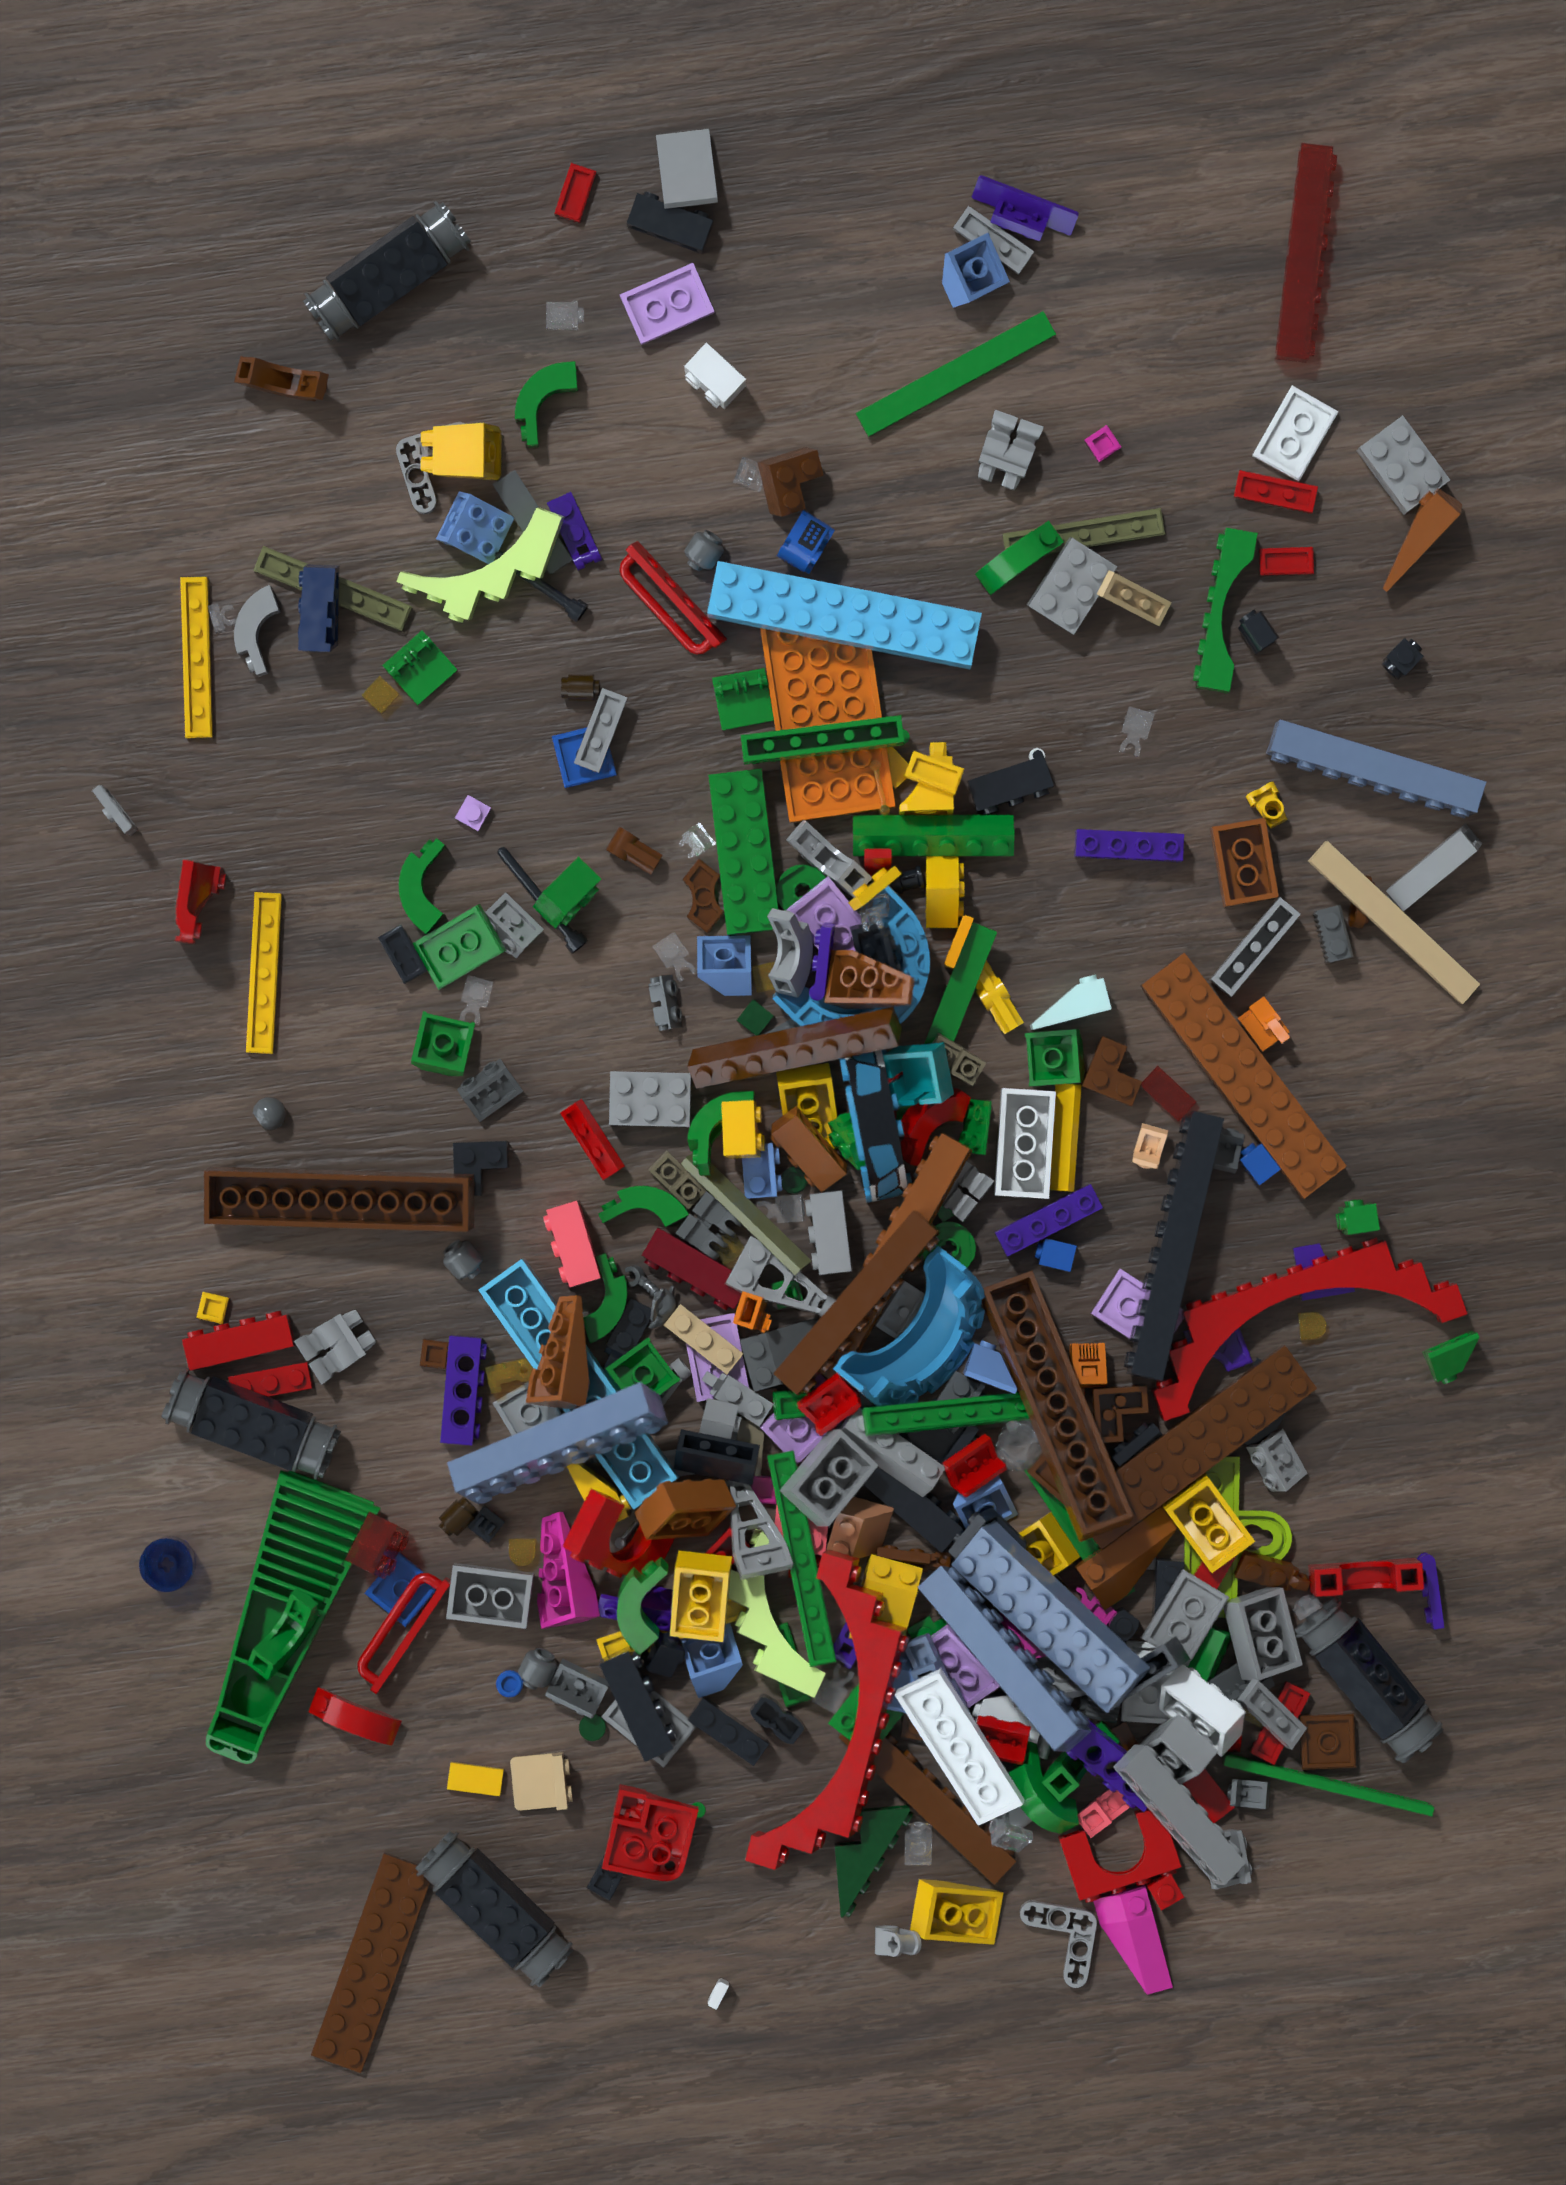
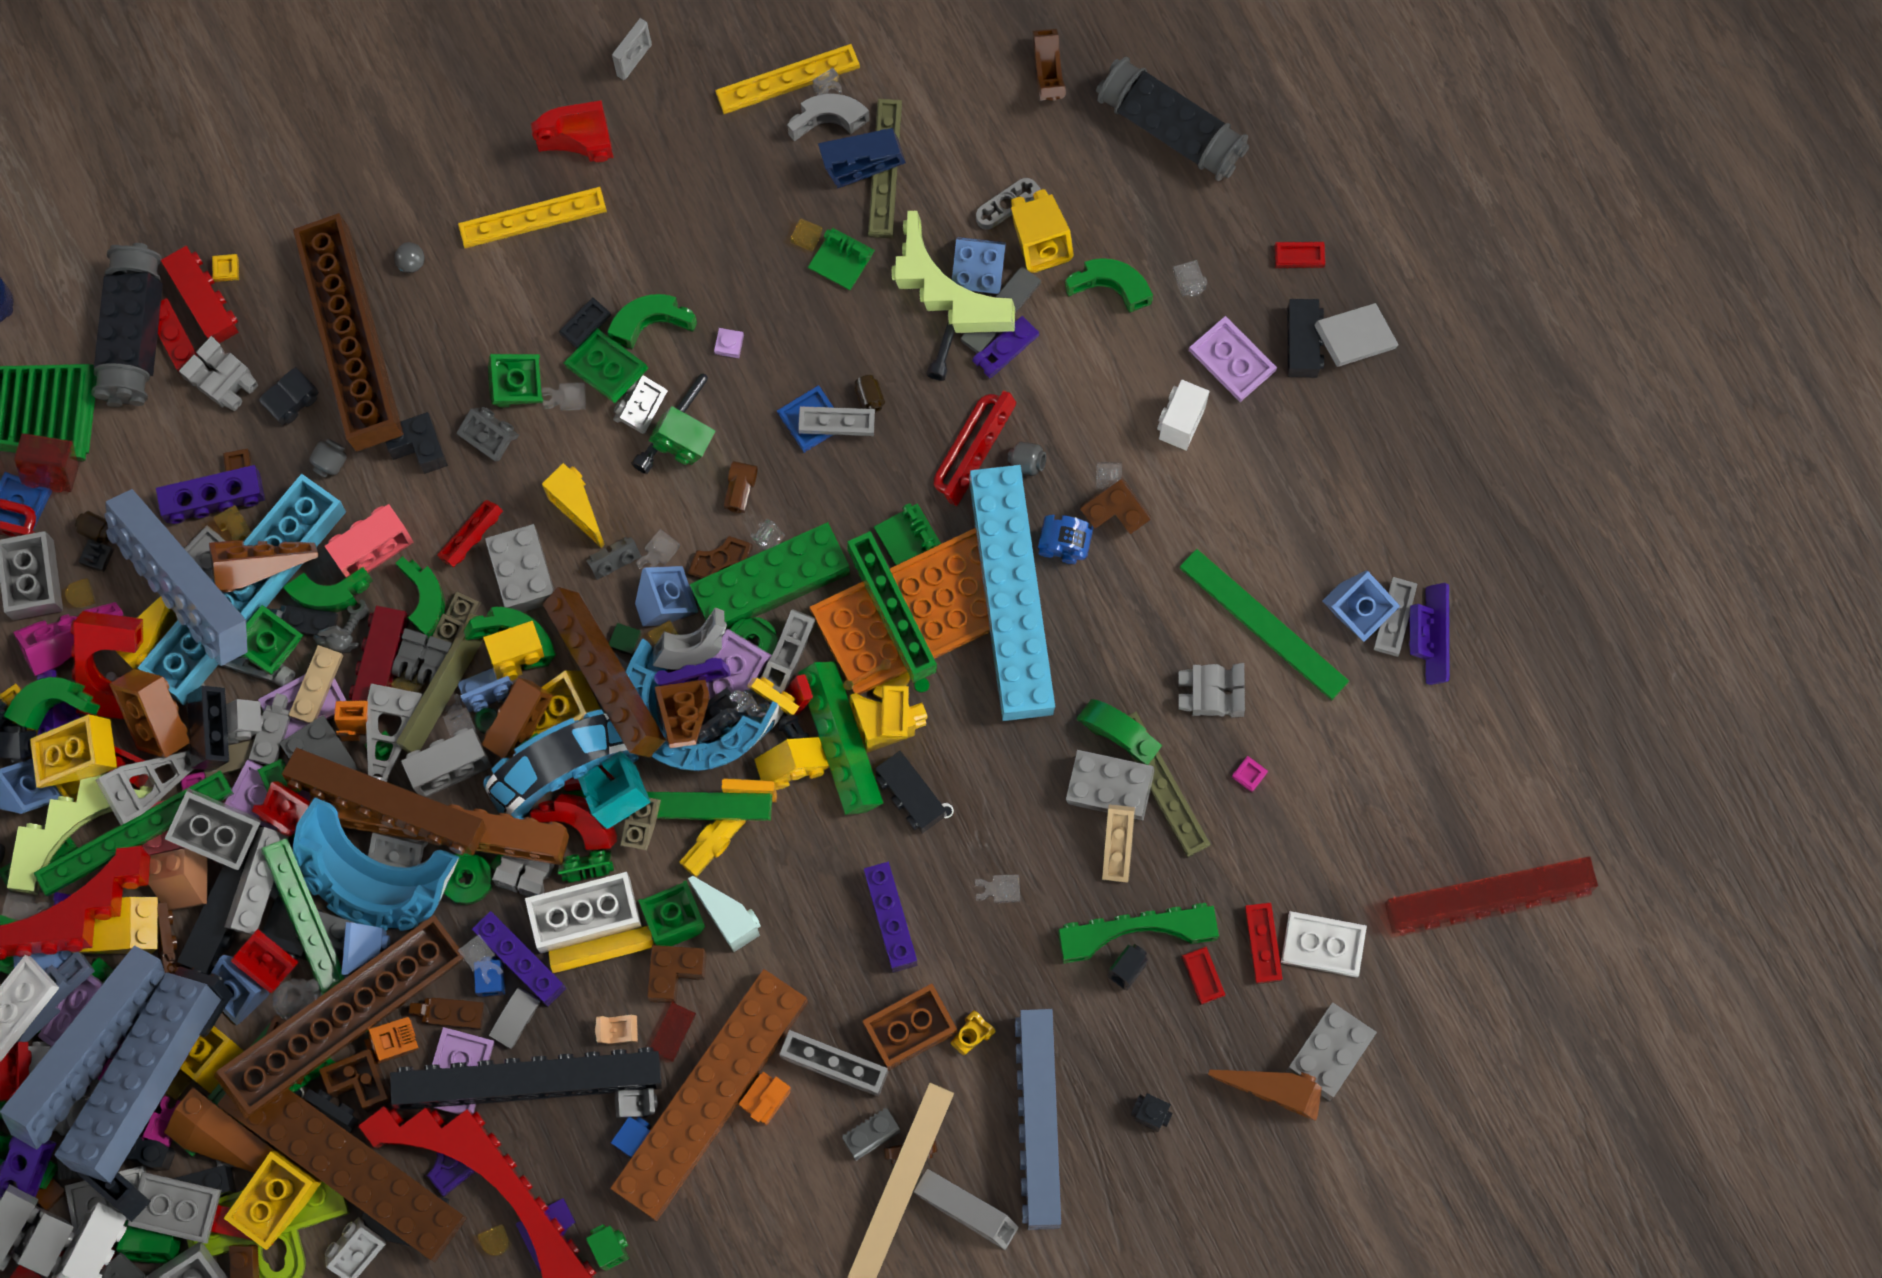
camera: 75 degrees right, 15 degrees down
(382, 1280) = (289, 396): none -> black brick
(595, 1023) = (568, 494): none -> yellow slope
(1037, 1256) = (478, 955): none -> clear plate
(1076, 1303) = (450, 1012): none -> reddish brown hinge
(1104, 1241) = (515, 1017): none -> light grey slope

